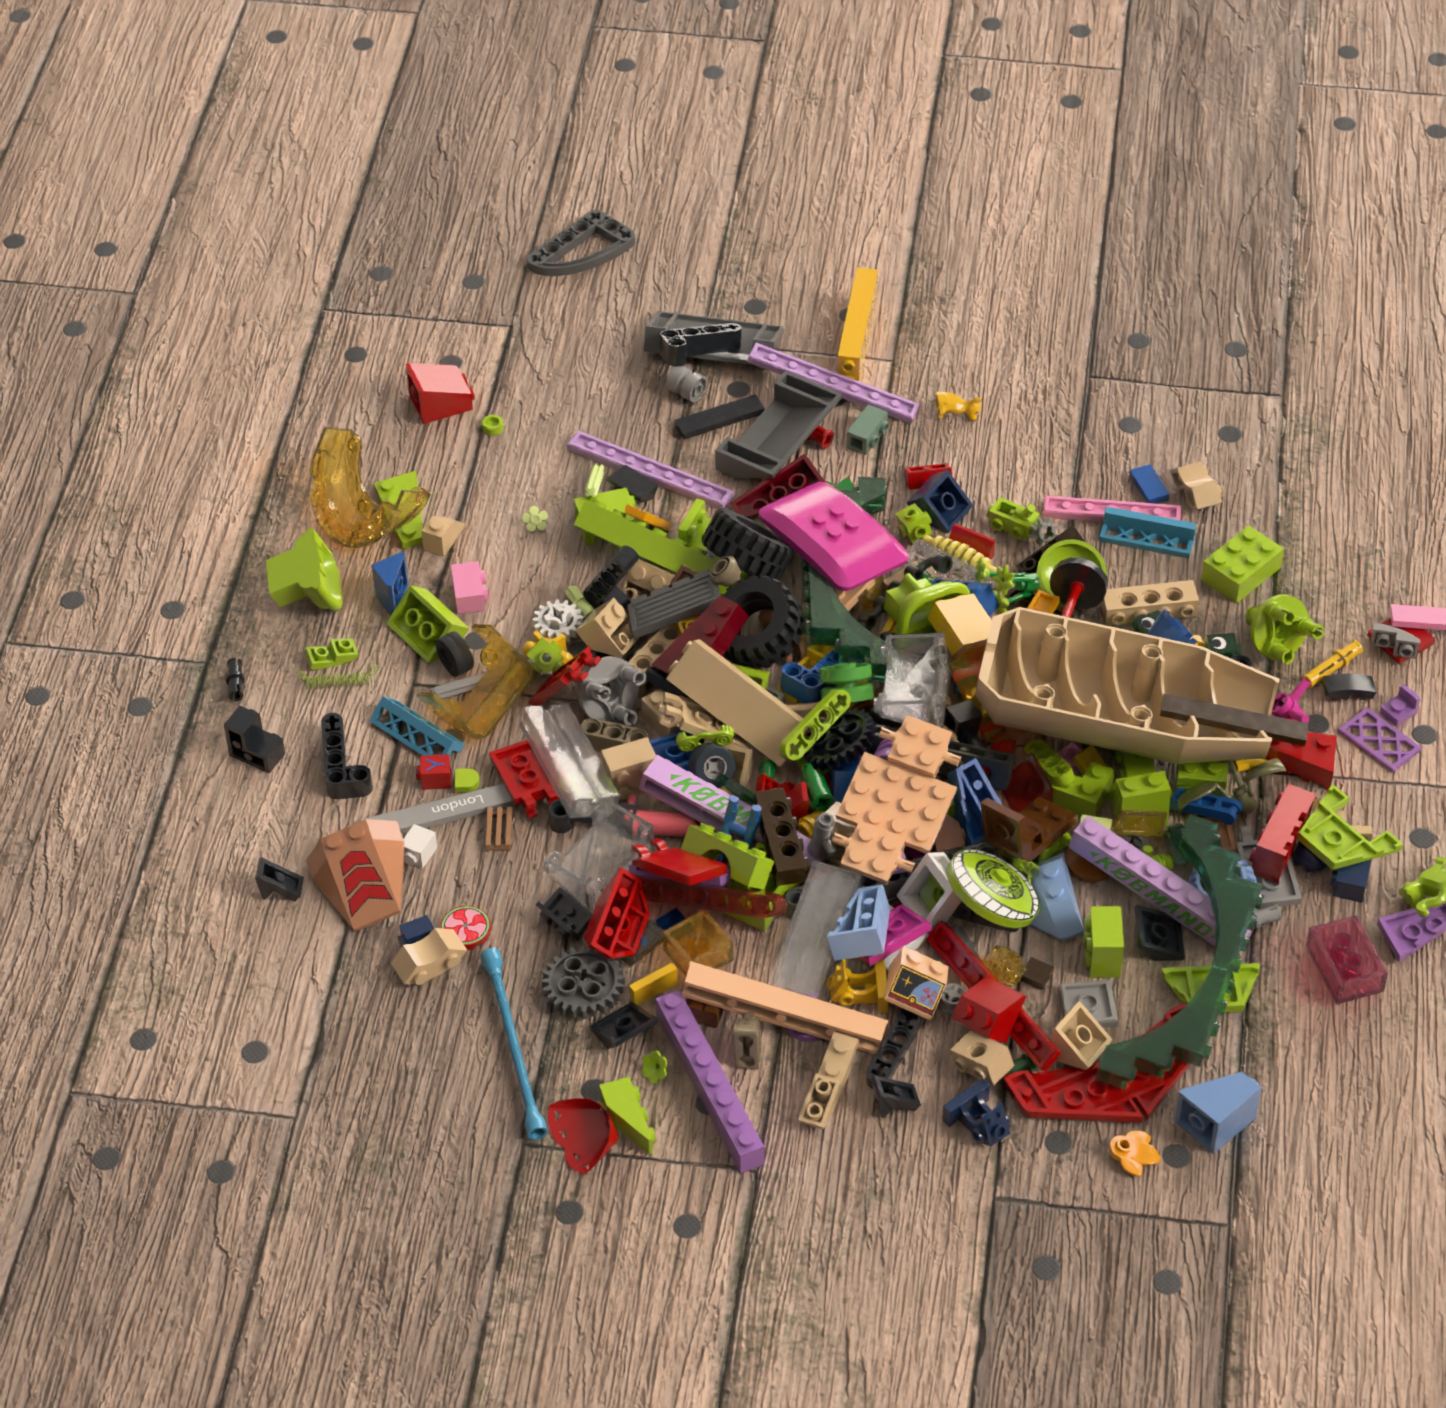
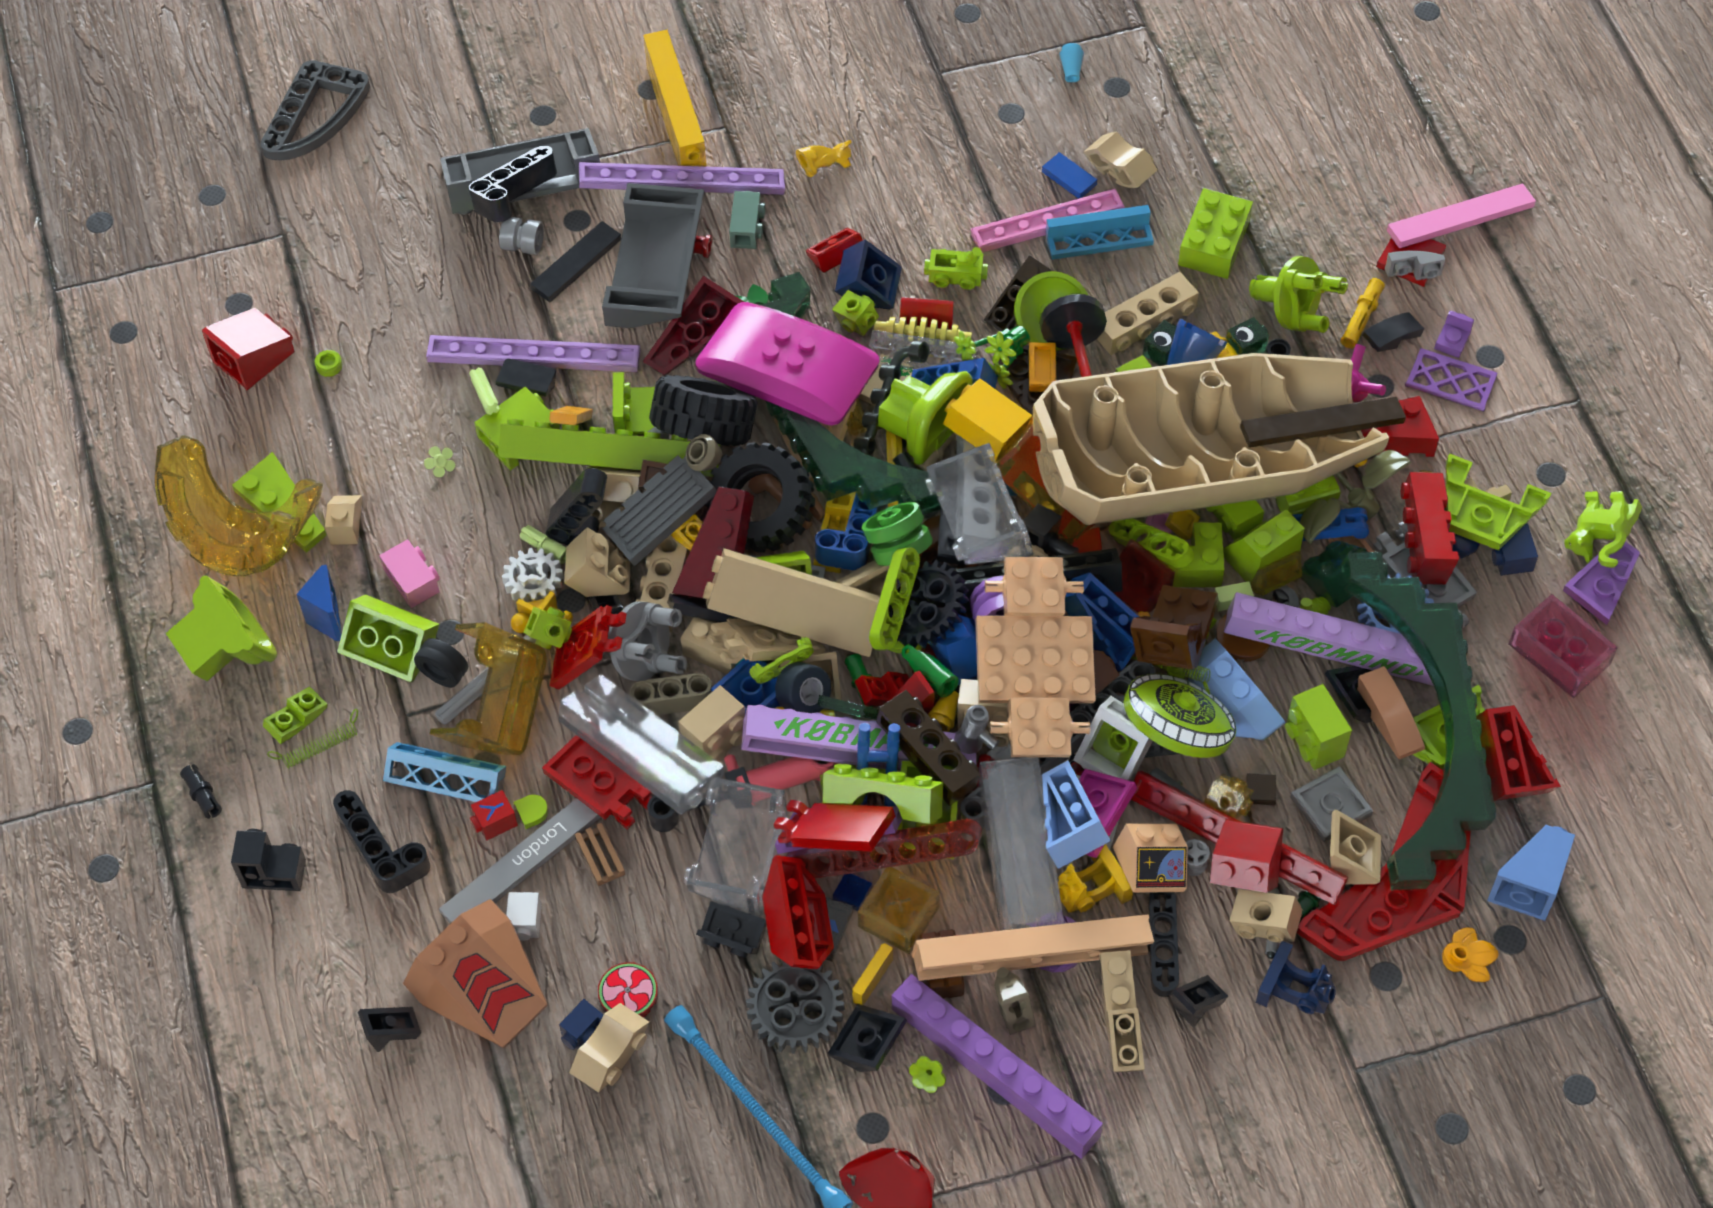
camera: 25 degrees left, 10 degrees up
(623, 1105) = (915, 1132): lime slope -> none
(1037, 528) = (999, 272): light grey gear -> none
(1170, 952) = (1390, 712): none -> nougat slope
(1201, 400) = (1071, 60): none -> medium azure cone
(1251, 1023) = (1512, 757): none -> red wedge

